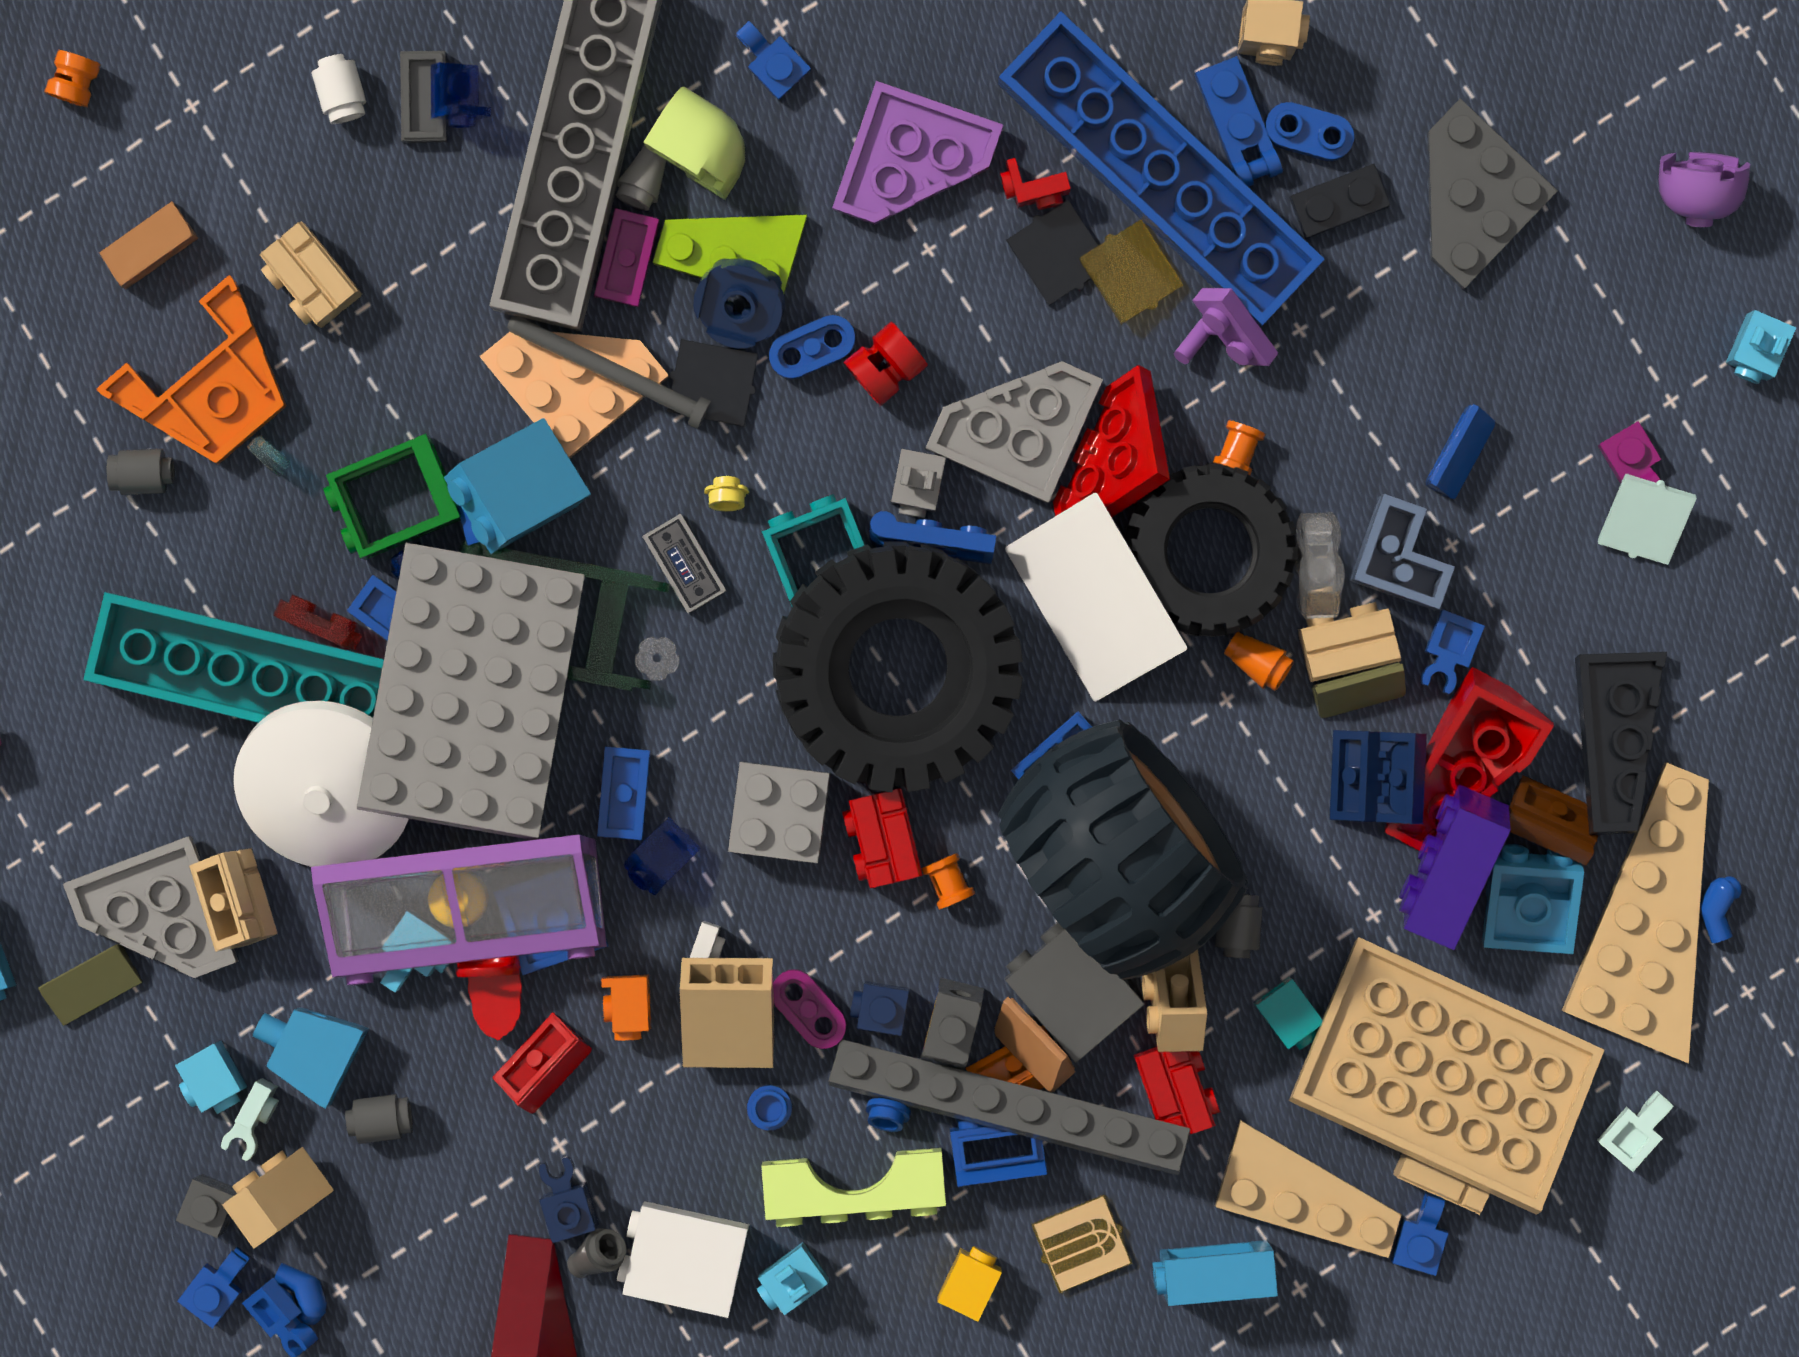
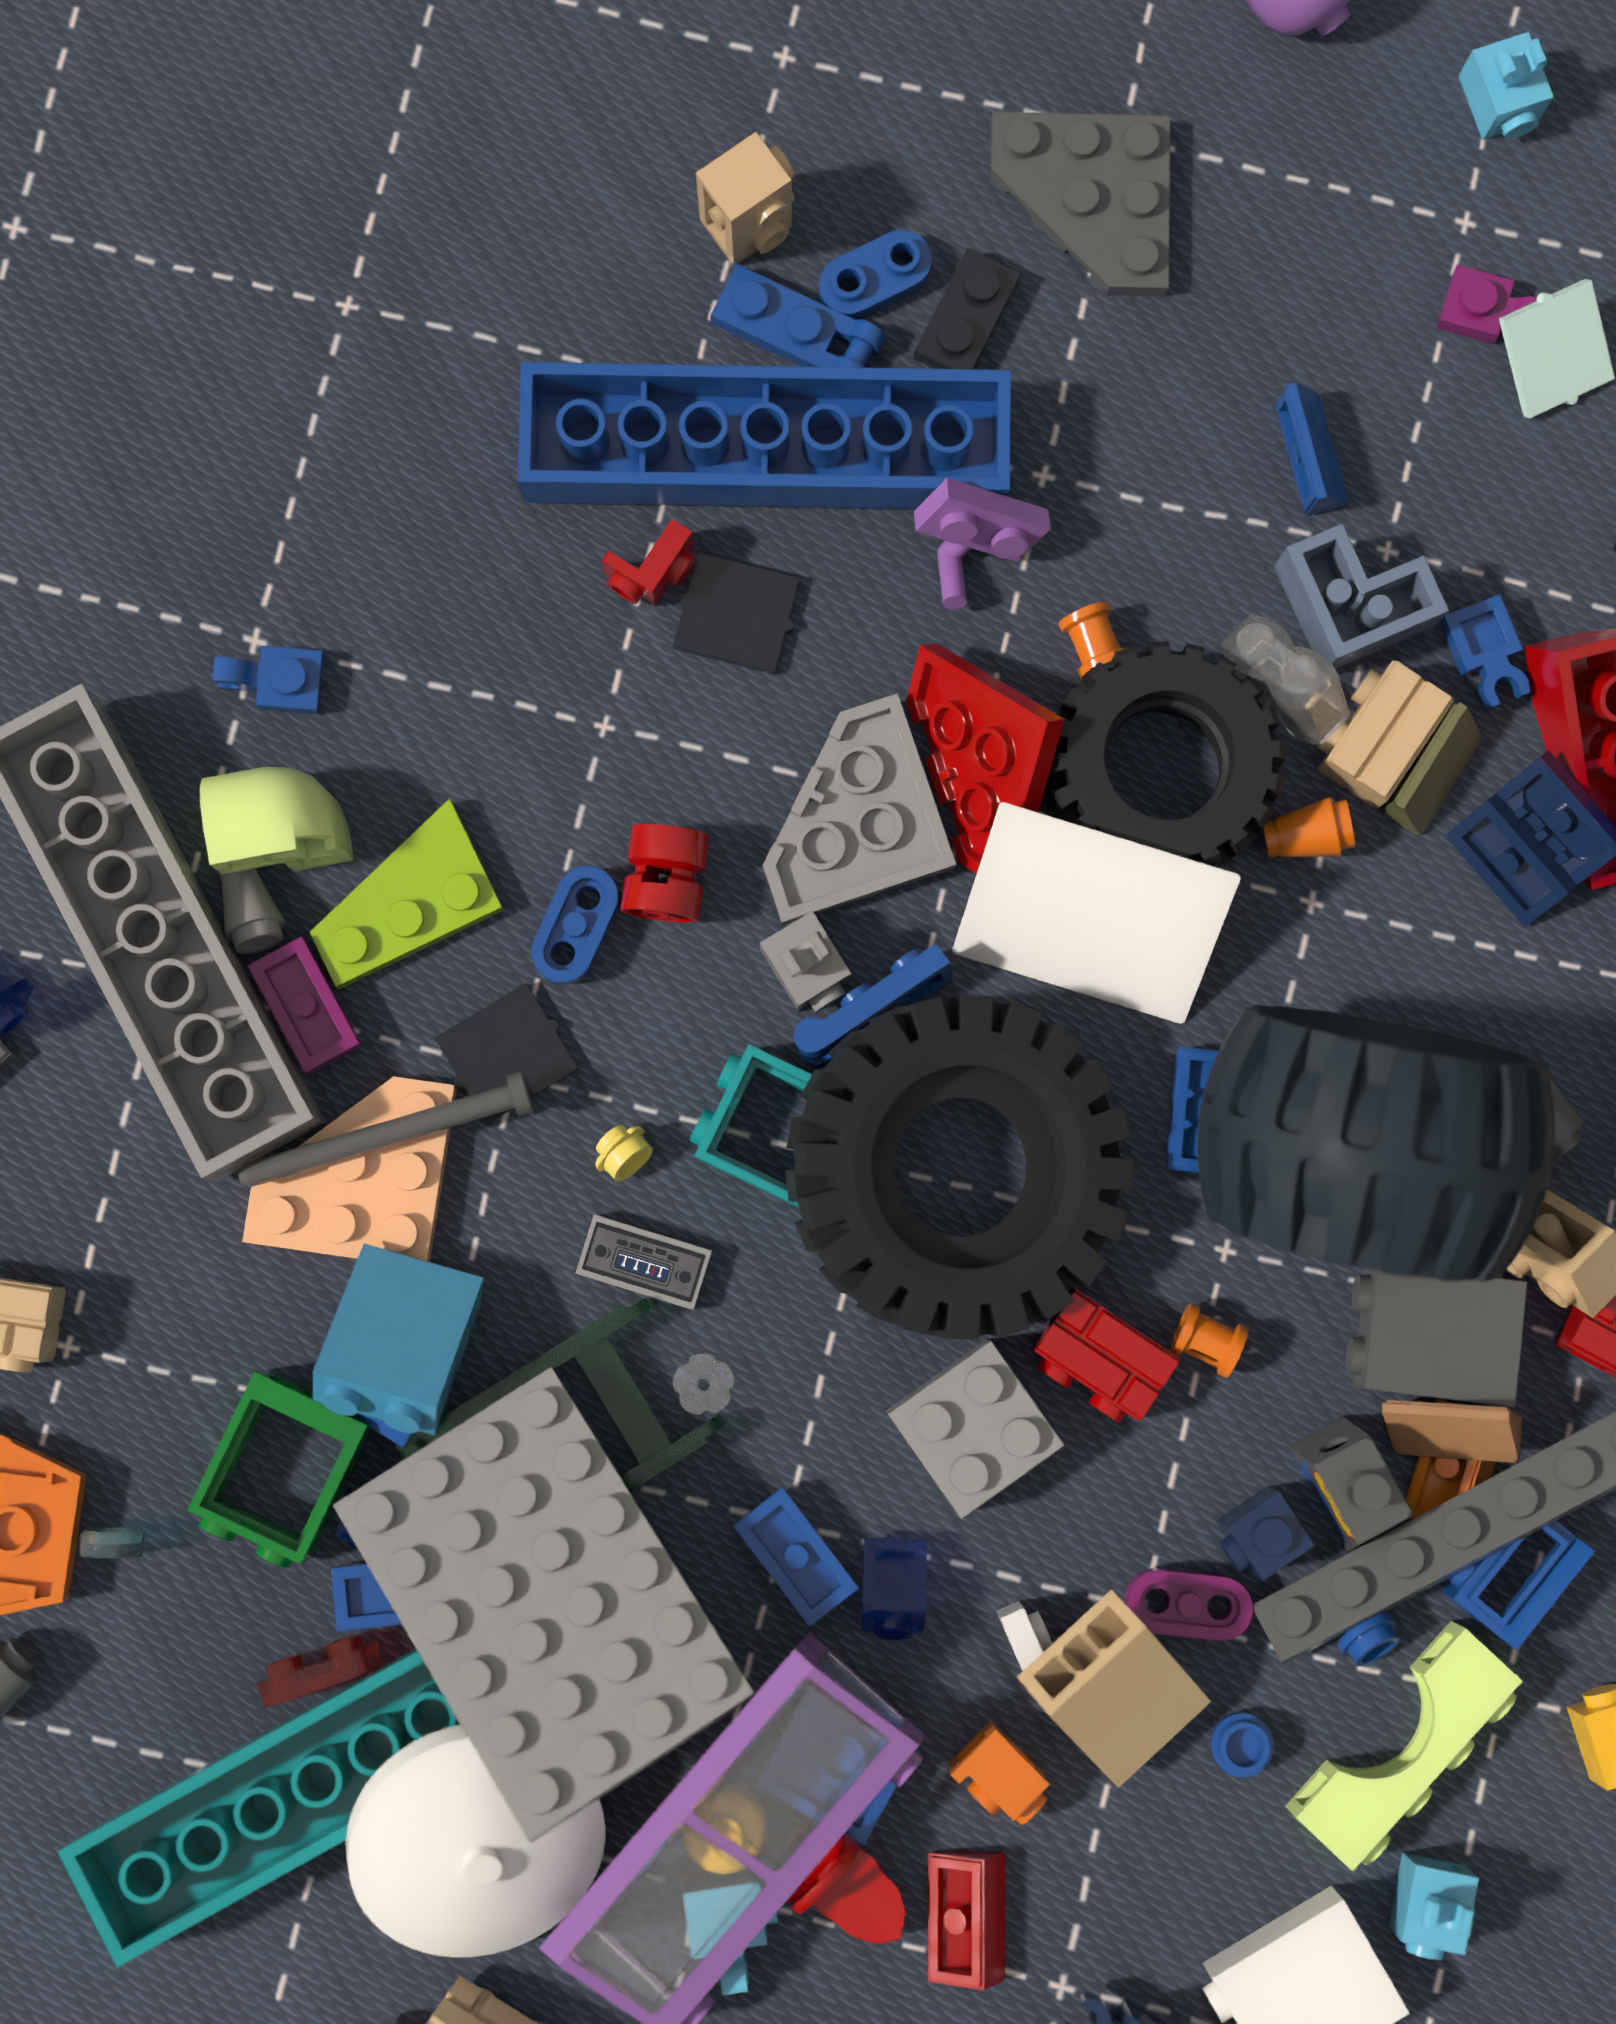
camera: 45 degrees left, 5 degrees down
(746, 279) = (465, 911): dark blue plate -> none
(911, 153) = (499, 644): medium lavender plate -> none
(1131, 271) = (826, 566): clear yellow piece -> none

